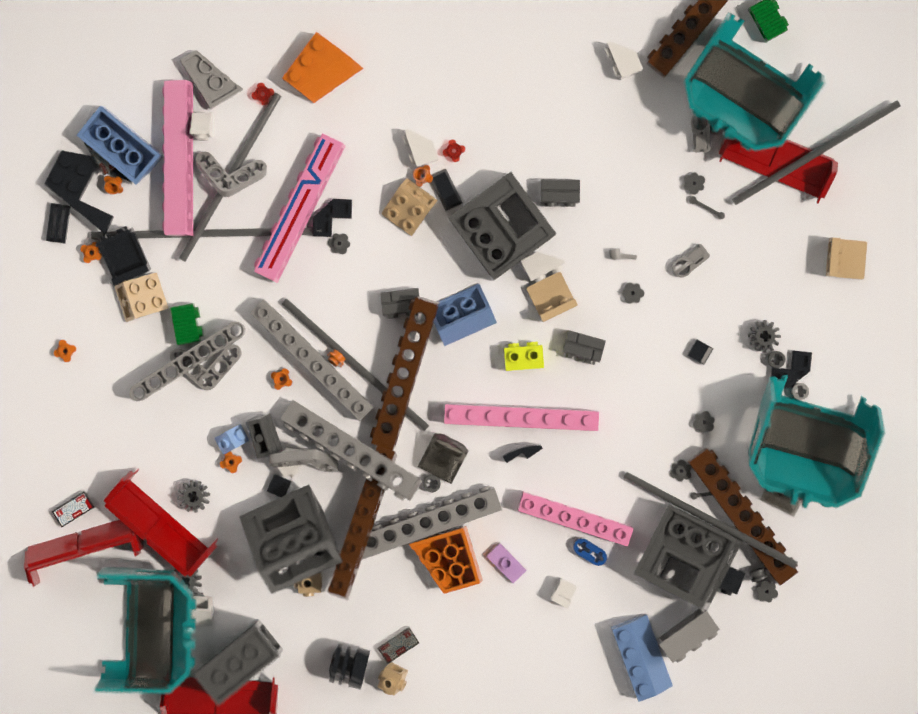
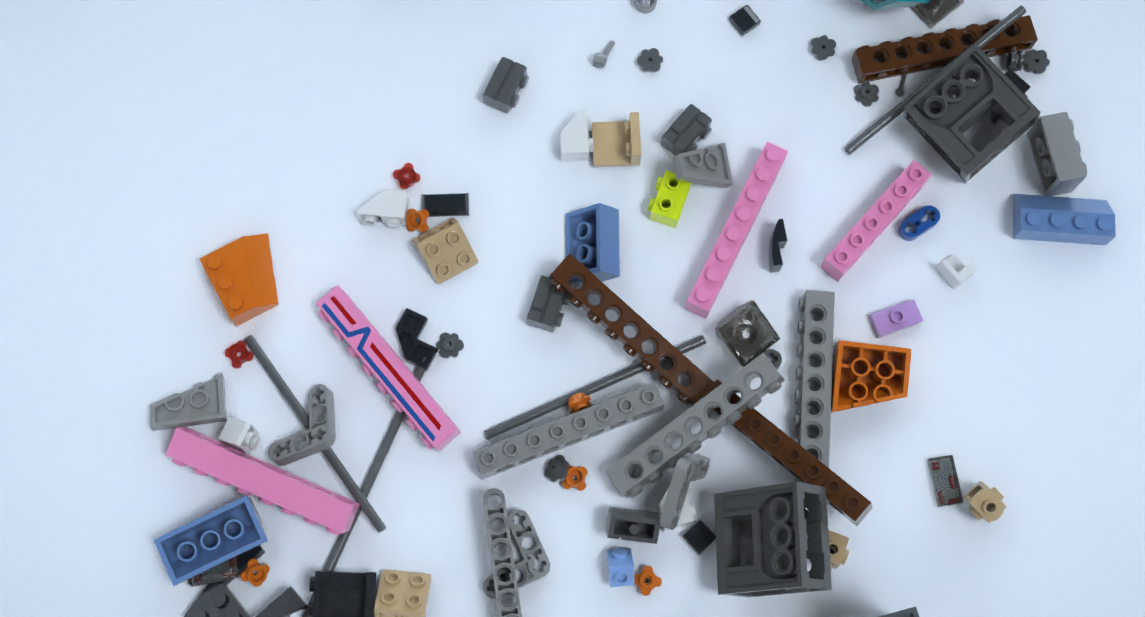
camera: 70 degrees left, 15 degrees down
(186, 323) = (459, 559): green brick -> none
(282, 363) = (557, 468): none -> dark grey plant
(349, 666) = (951, 544): black wheel -> none
(496, 226) = (518, 172): dark grey piece -> none
(559, 373) = (704, 166): none -> light grey wing

